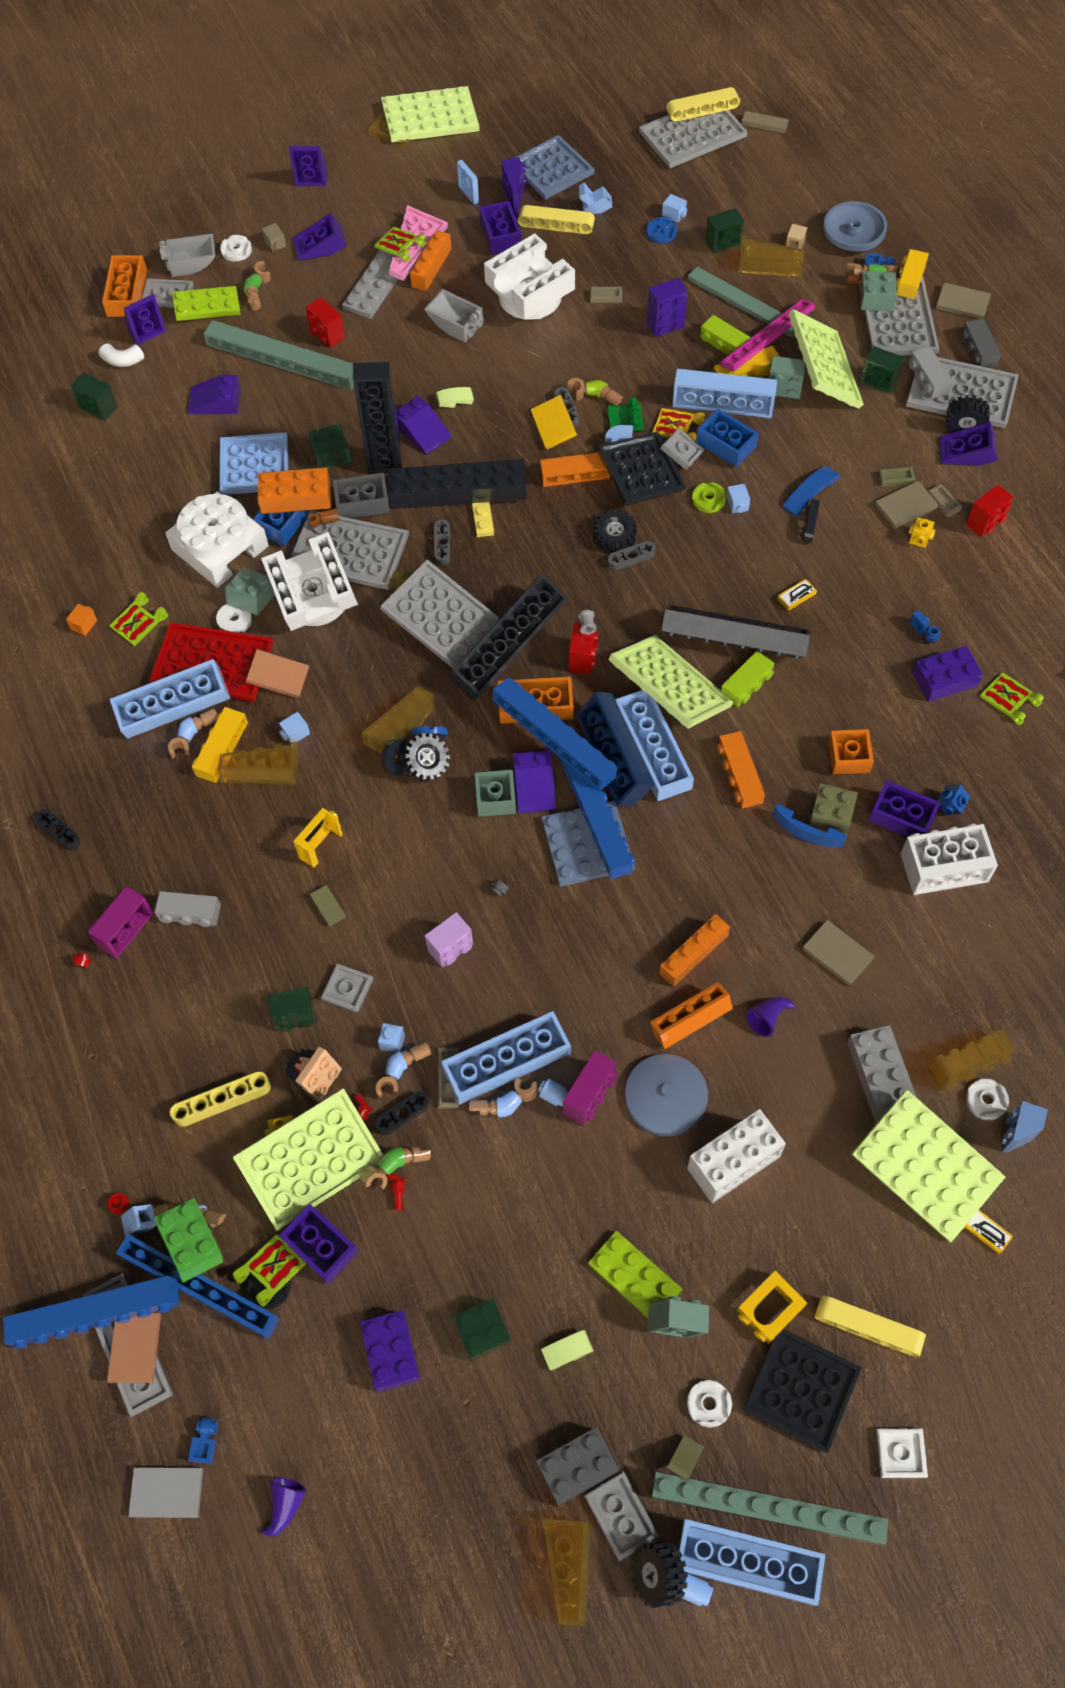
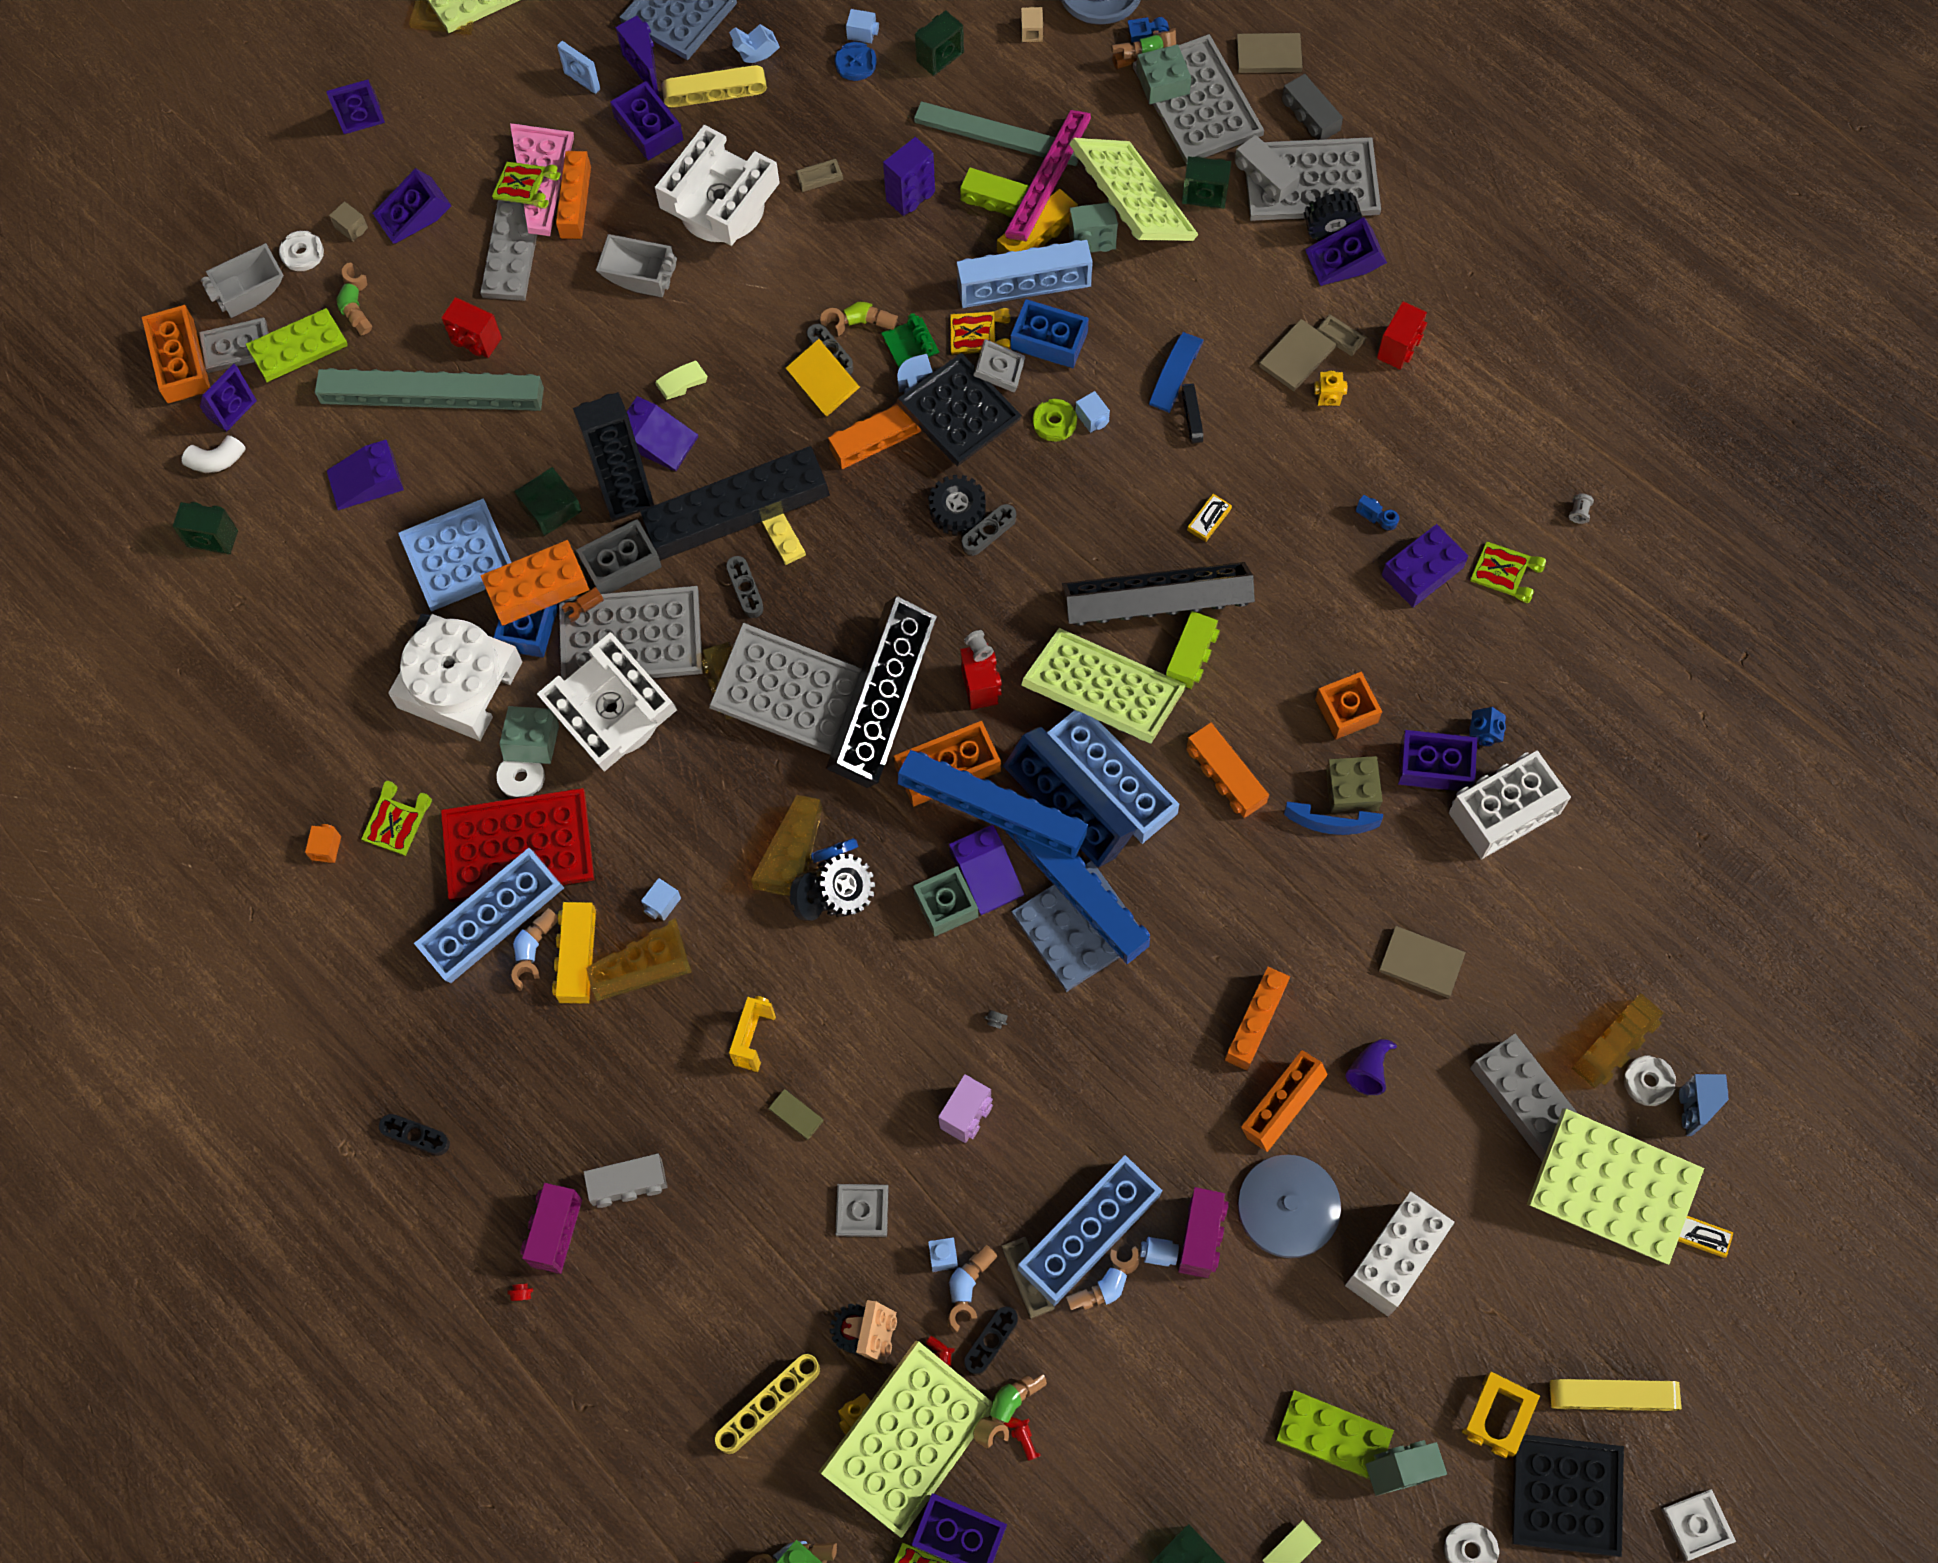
camera: 20 degrees left, 5 degrees up
(277, 674) = (610, 834): nougat tile -> none
(292, 1009) = (812, 1263): clear green brick -> none
(769, 258) = (1008, 64): clear yellow wedge -> none
(896, 476) = (1272, 320): olive tile -> none
(911, 273) = (1196, 36): yellow brick -> none

